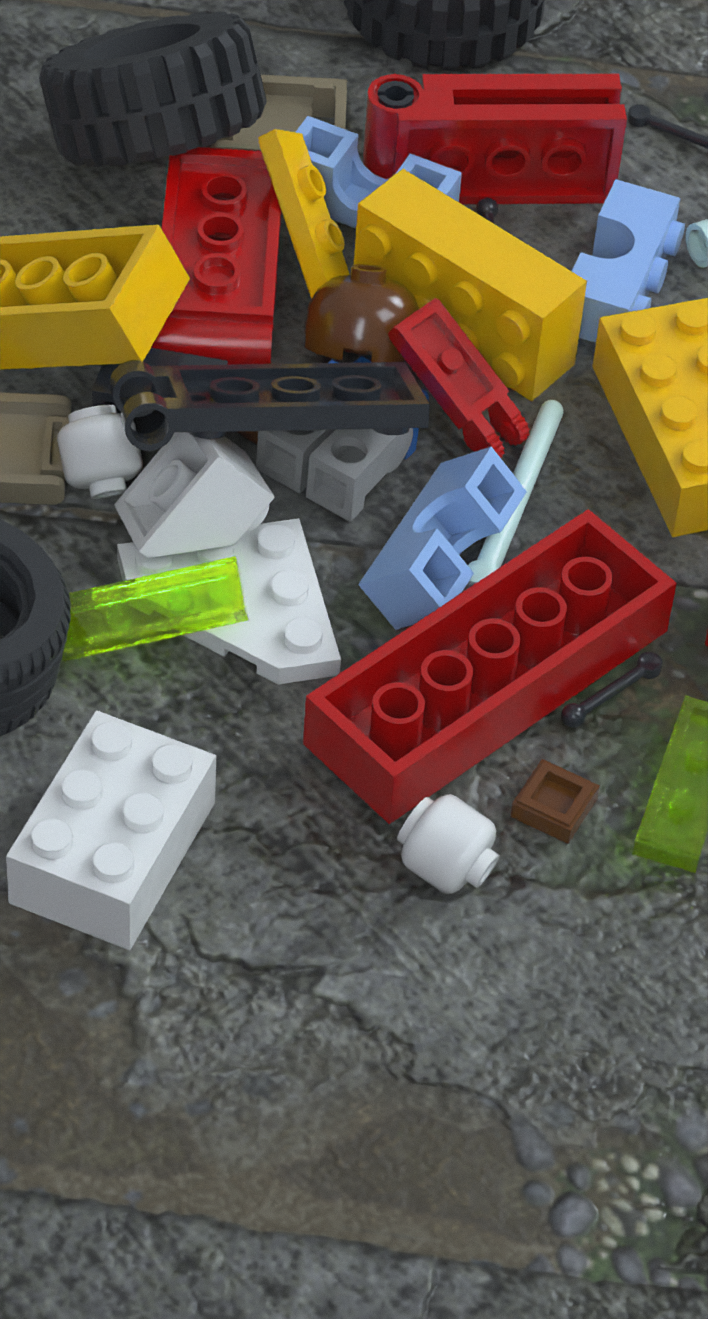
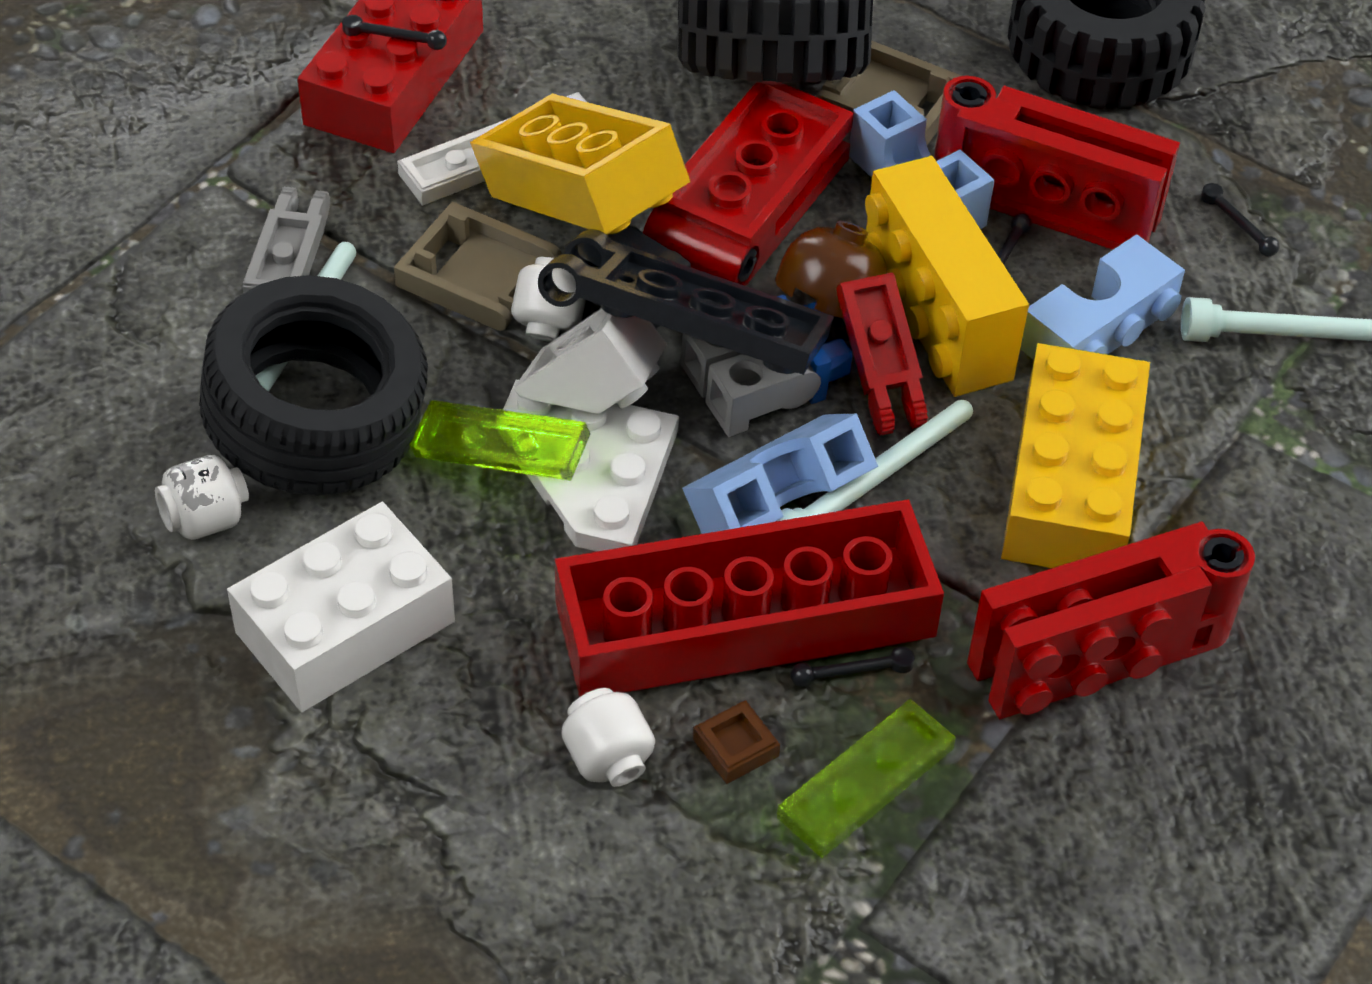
camera: 30 degrees right, 0 degrees up
(302, 203) = (842, 158): yellow plate -> none

